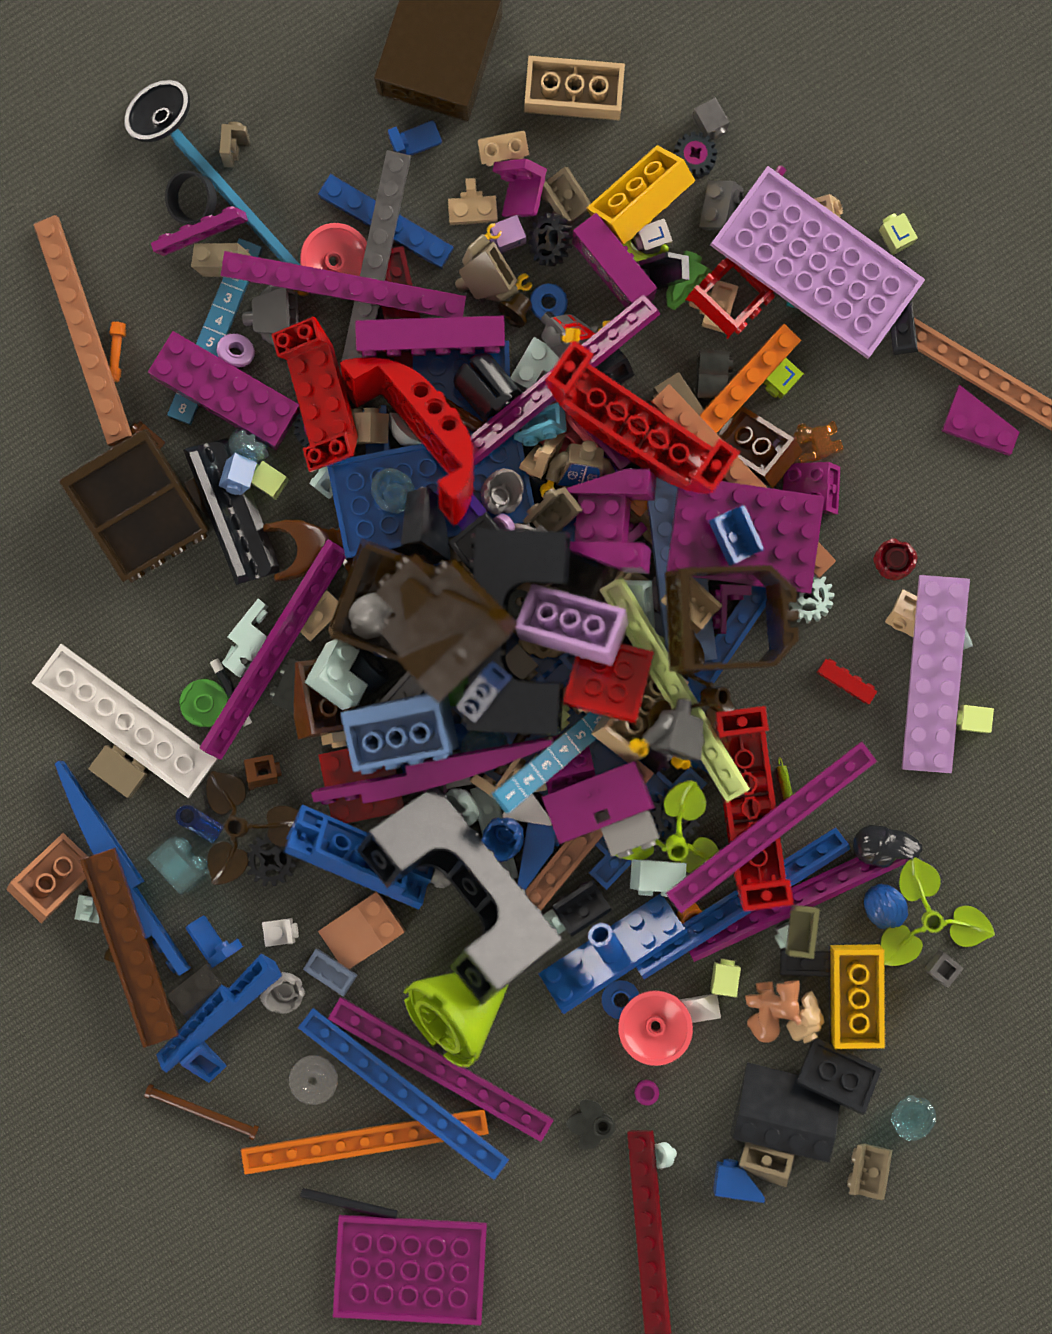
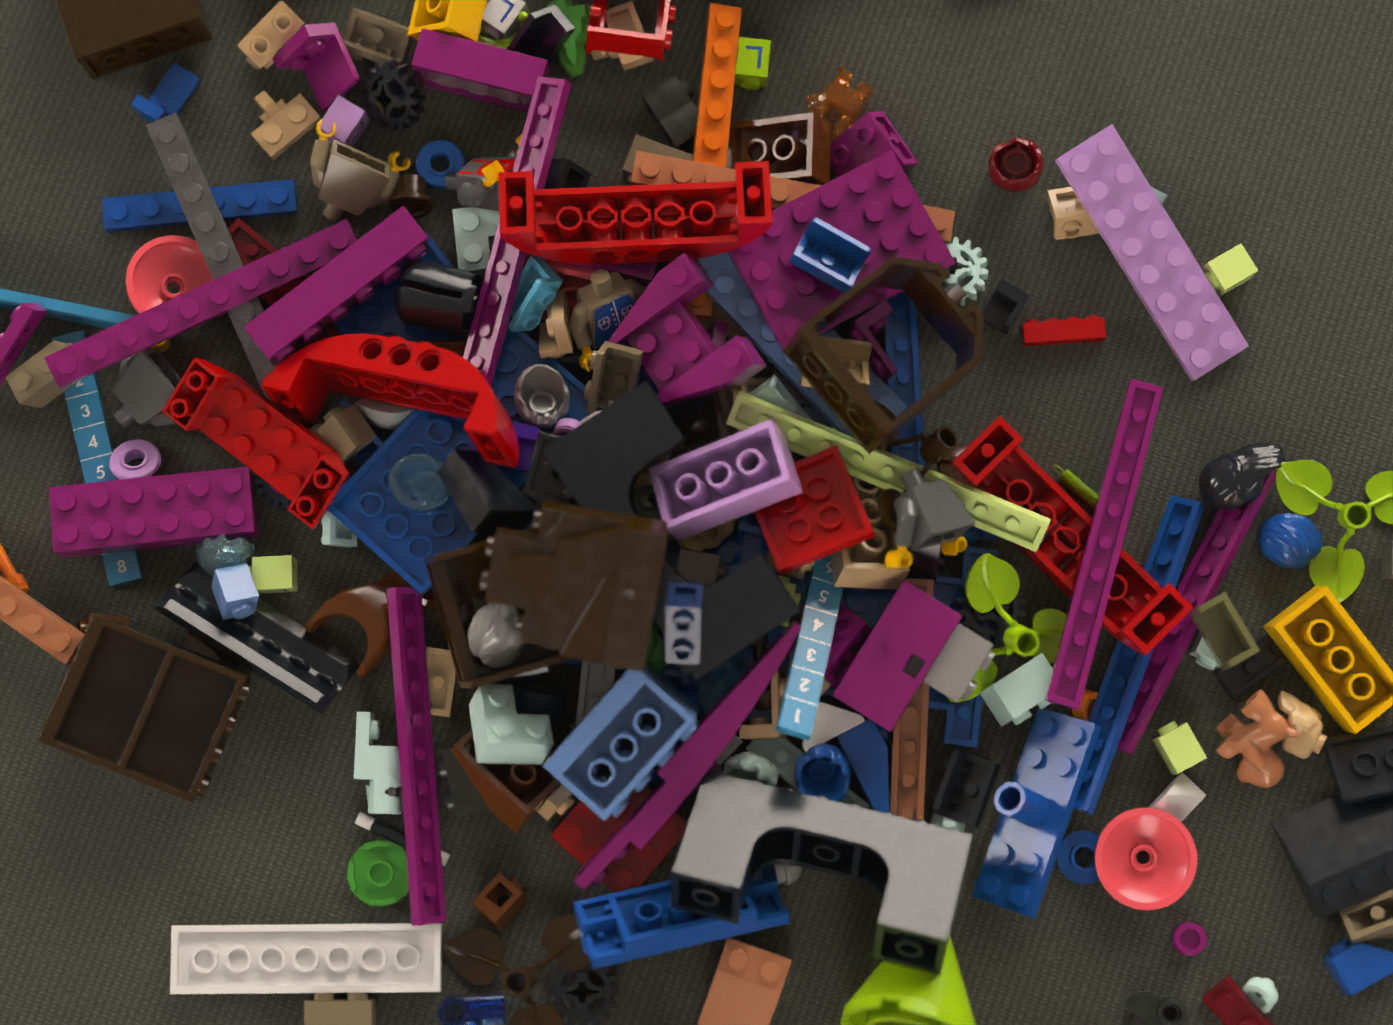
camera: 30 degrees left, 5 degrees down
(822, 640) = (1004, 306): none -> black panel

